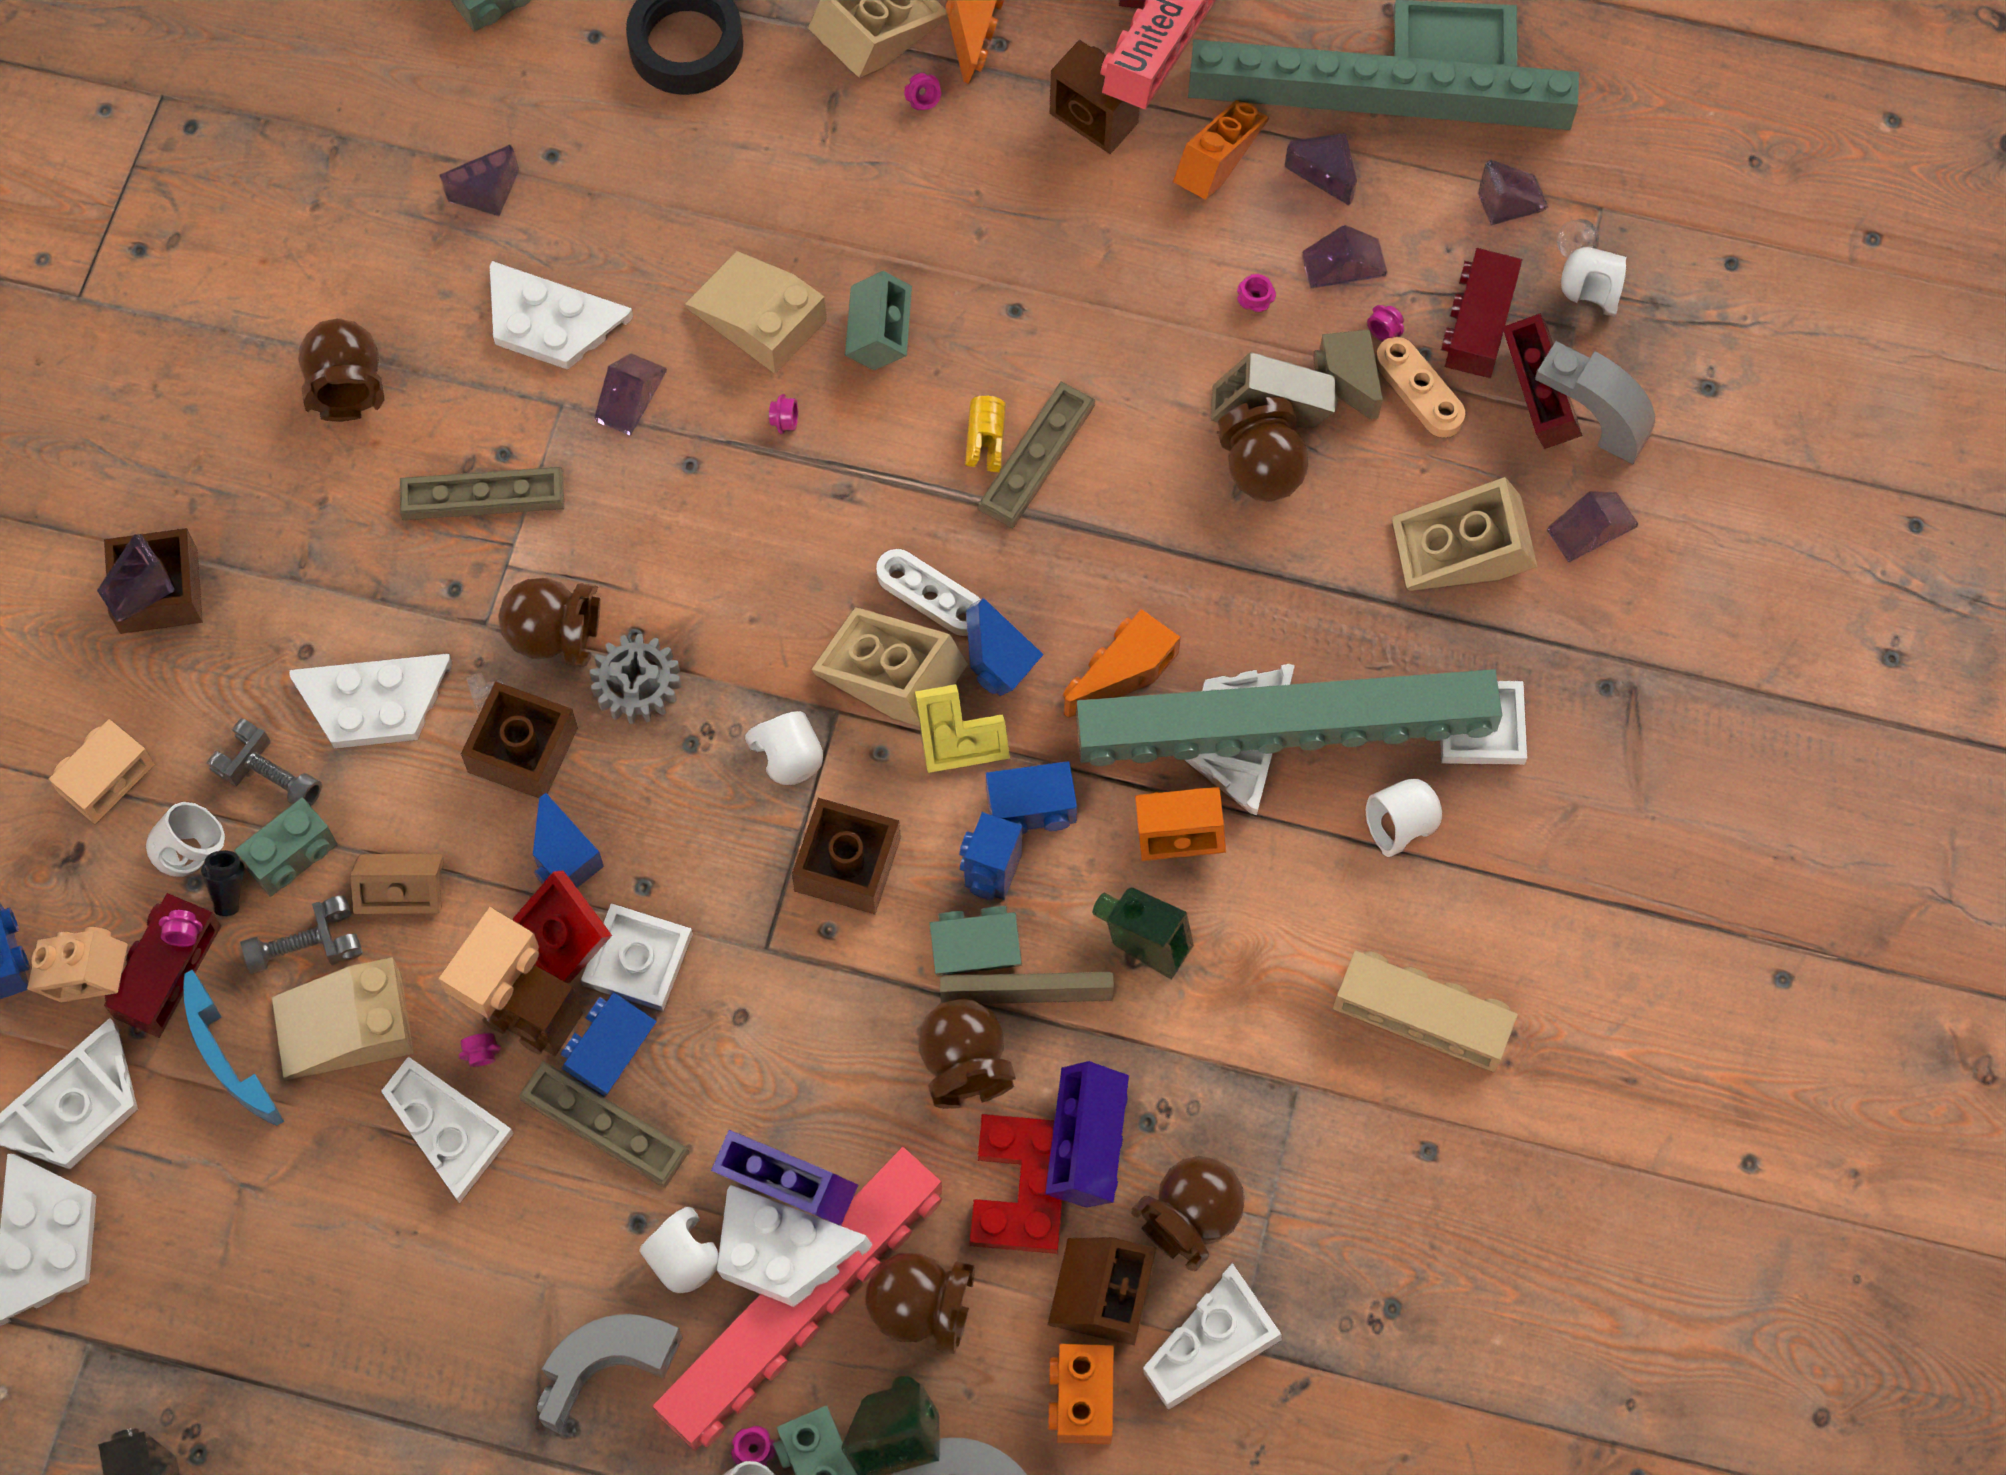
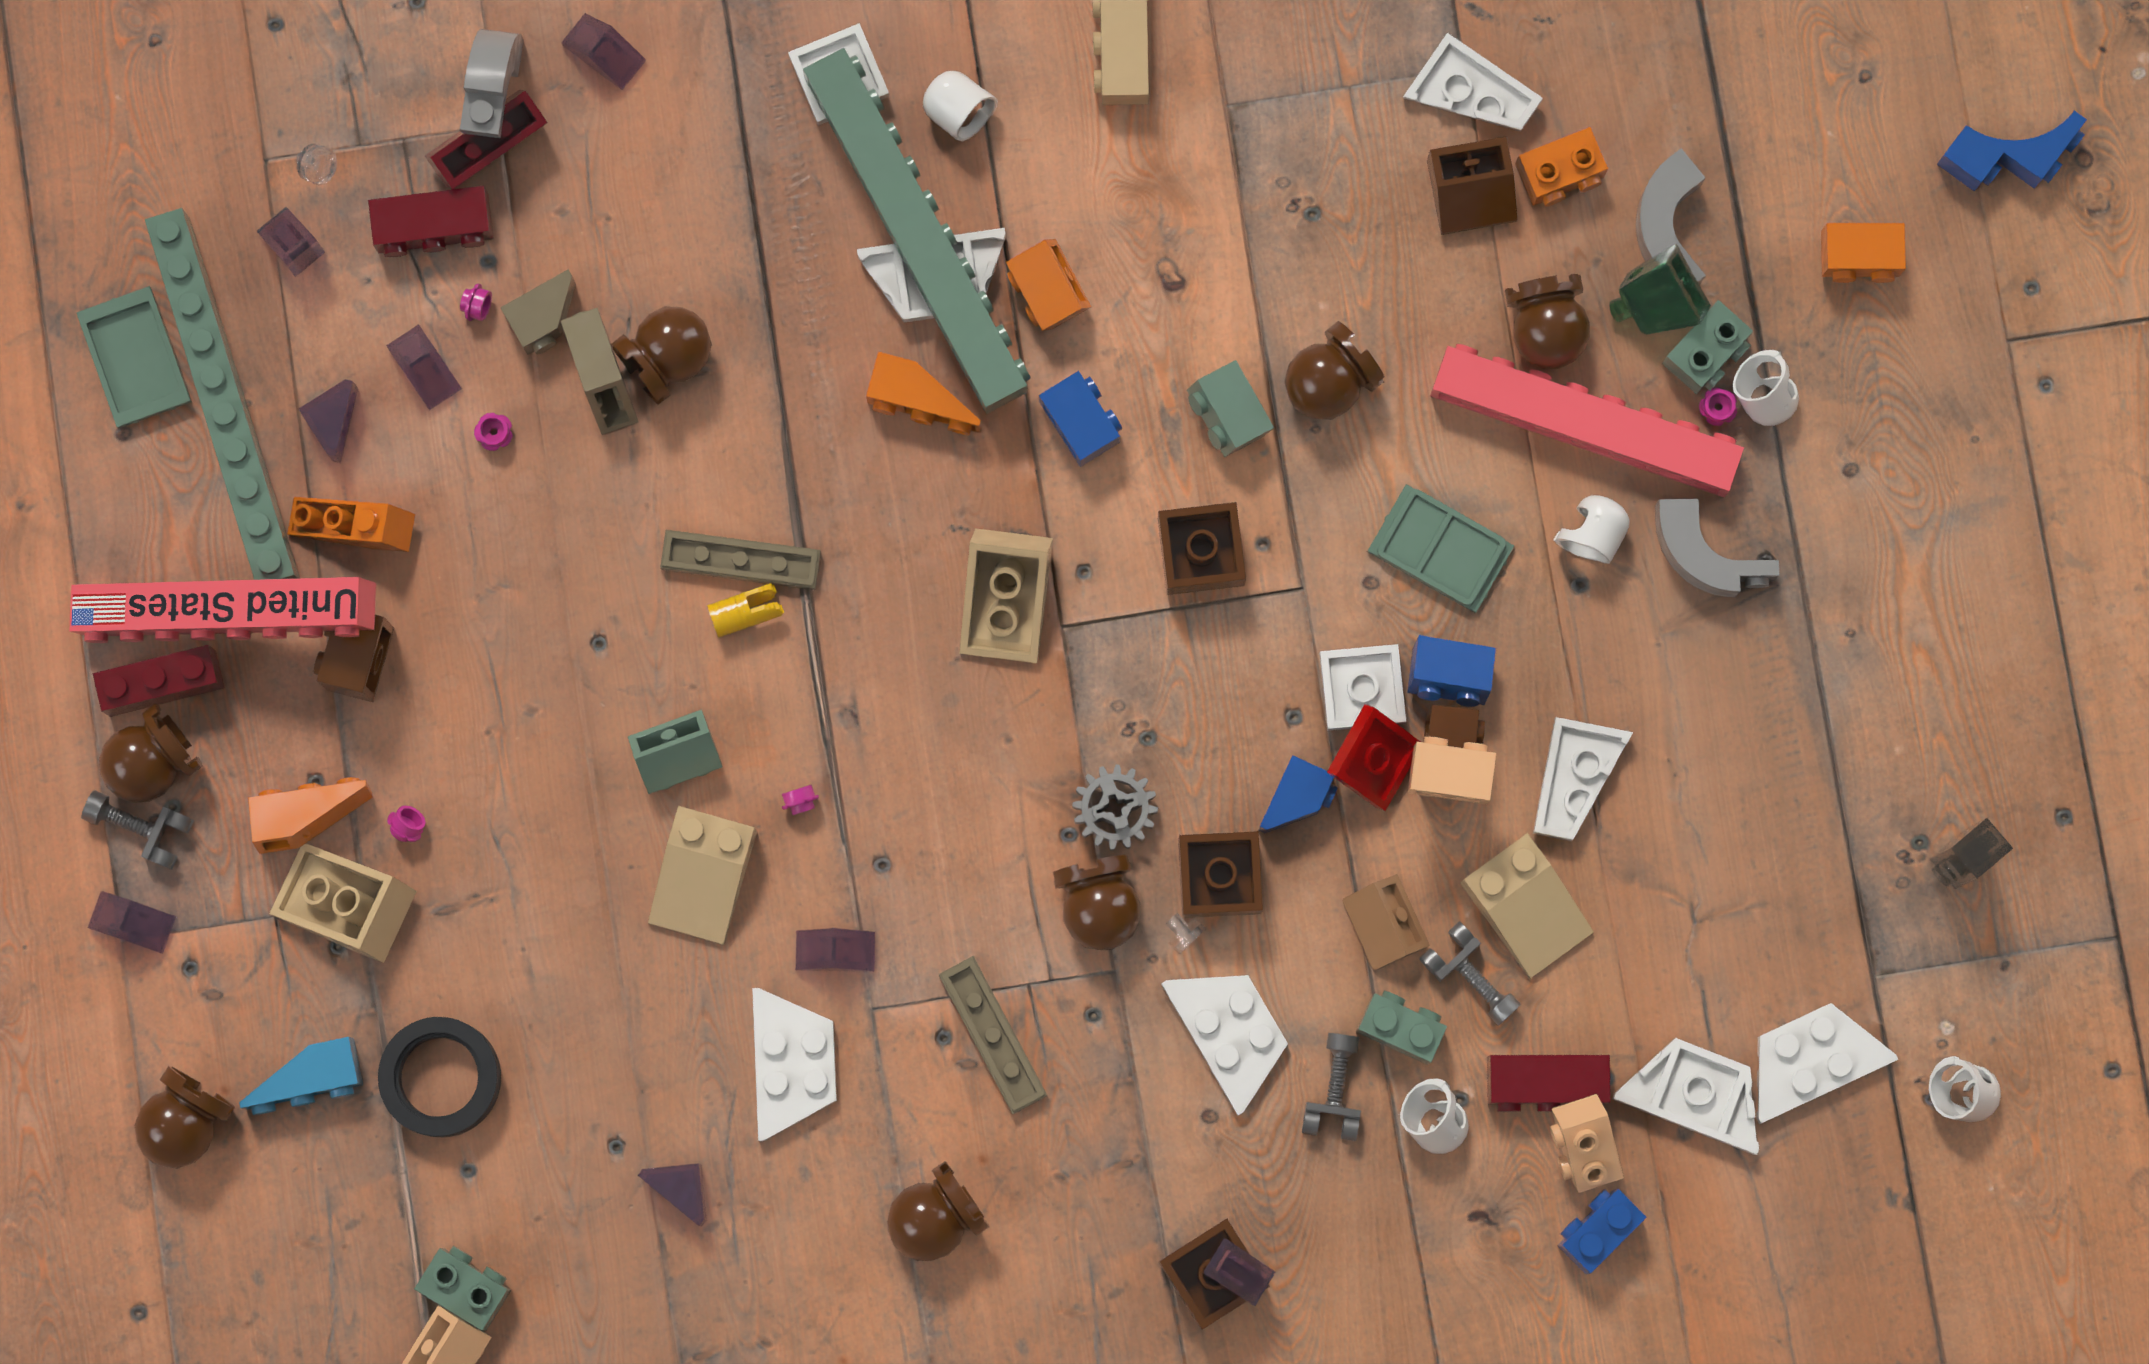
camera: 115 degrees left, 15 degrees up
(101, 771) = (1405, 1224): light nougat brick -> none
(180, 928) = (1520, 1068): dark pink plate -> none
(201, 1013) = (1623, 945): dark azure slope -> none
(223, 879) = (1456, 1062): black cone -> none
(479, 1049) = (1503, 780): dark pink plate -> none
(604, 1124) = (1514, 649): dark tan tile -> none
(741, 1092) = (1441, 548): none -> sand green piece
(780, 1248) = (1559, 449): white wing -> none
(785, 1177) = (1504, 468): dark purple brick -> none
(790, 747) = (1123, 642): white helmet -> none
(919, 580) = (916, 574): white plate -> none
(954, 742) = (1053, 508): light yellow plate -> none
(991, 856) = (1152, 425): blue brick -> none
(997, 649) = (957, 503): blue slope -> none
(1028, 987) = (1247, 352): dark tan tile -> none
(1035, 1219) = (1430, 267): red plate -> none
(1087, 1134) = (1353, 249): dark purple brick -> none
(1147, 929) = (1156, 258): clear green torso -> none
(1195, 1206) = (1377, 137): reddish brown tile -> none
(1422, 400) = (525, 267): light nougat plate -> none
(1465, 538) = (670, 153): tan slope -> none
(1594, 277) = (350, 130): white helmet -> none

